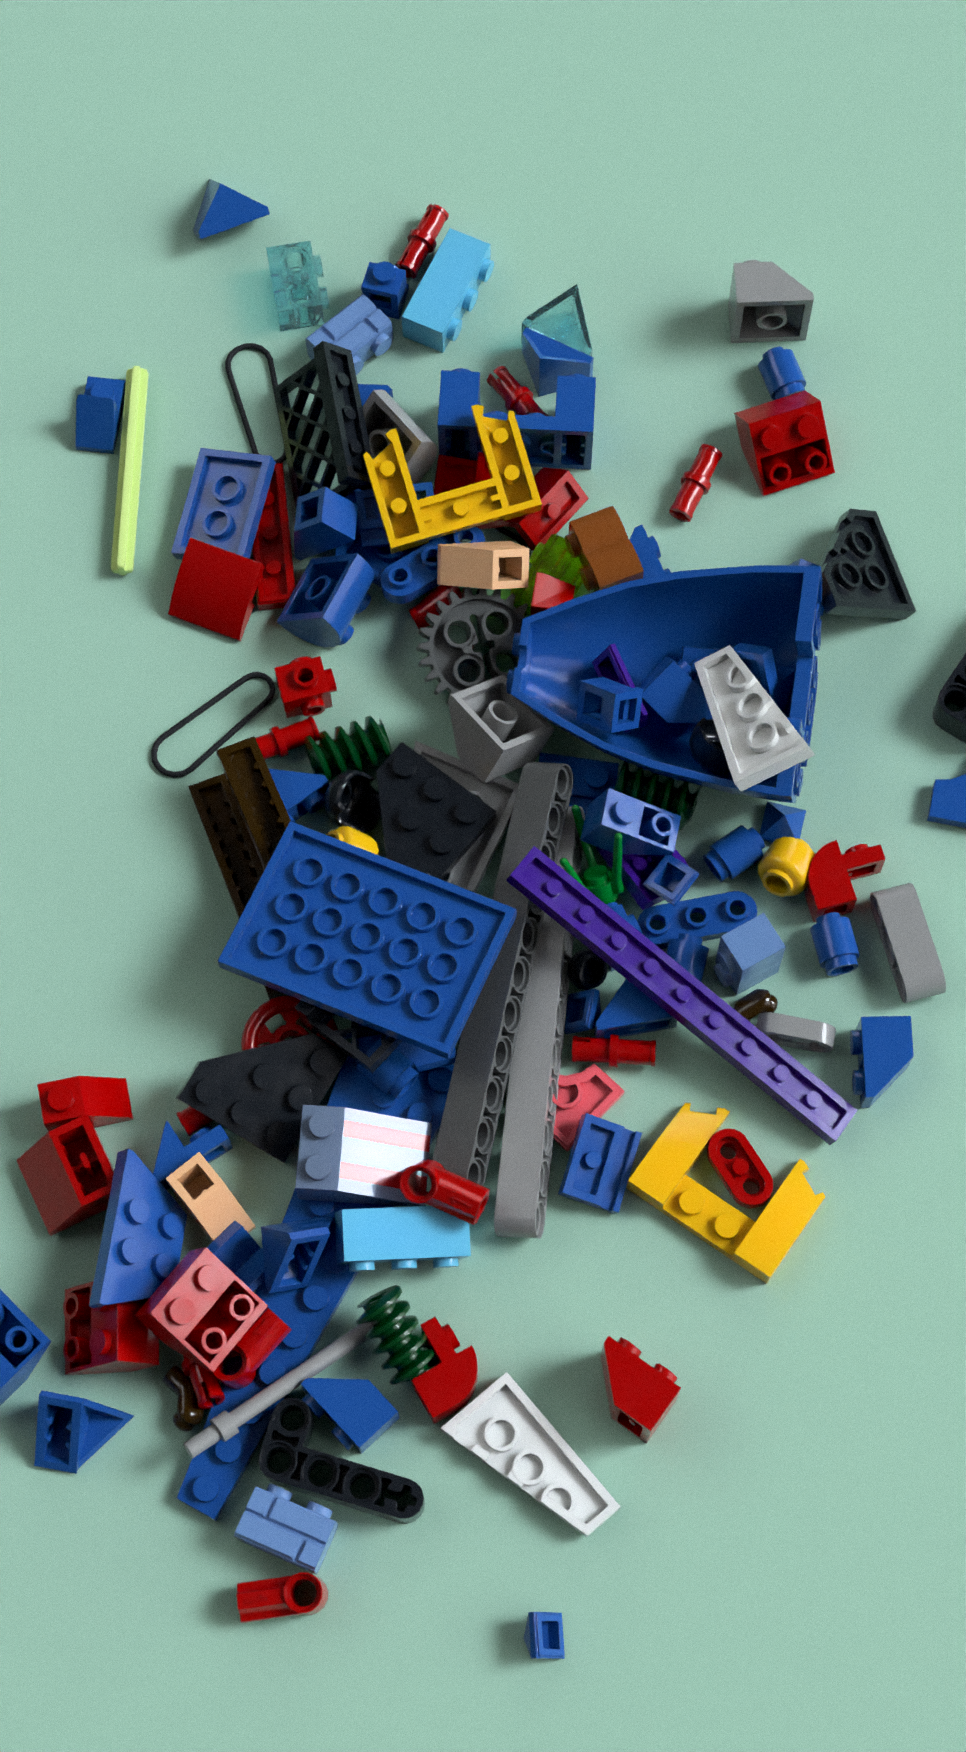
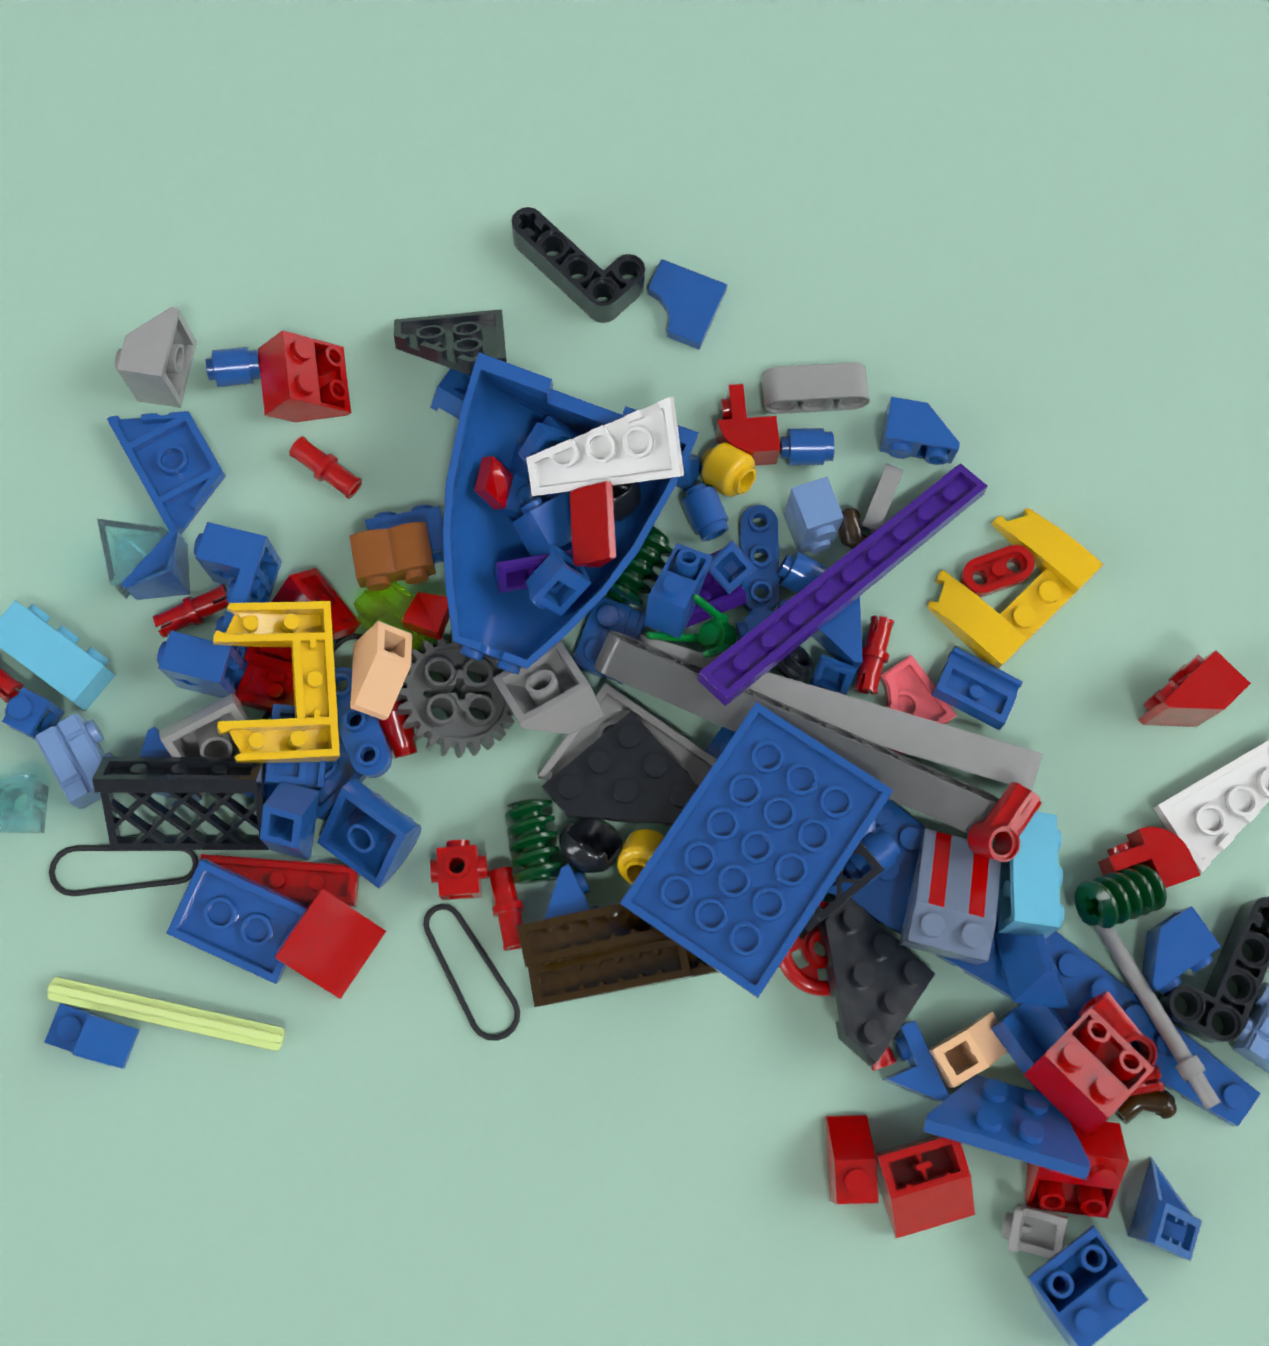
camera: 85 degrees left, 5 degrees up
(41, 1291) = (1035, 1231): none -> light grey bracket
(665, 345) = (171, 463): none -> blue wing
(669, 718) = (593, 525): none -> red slope
(703, 627) = (493, 482): none -> red tile

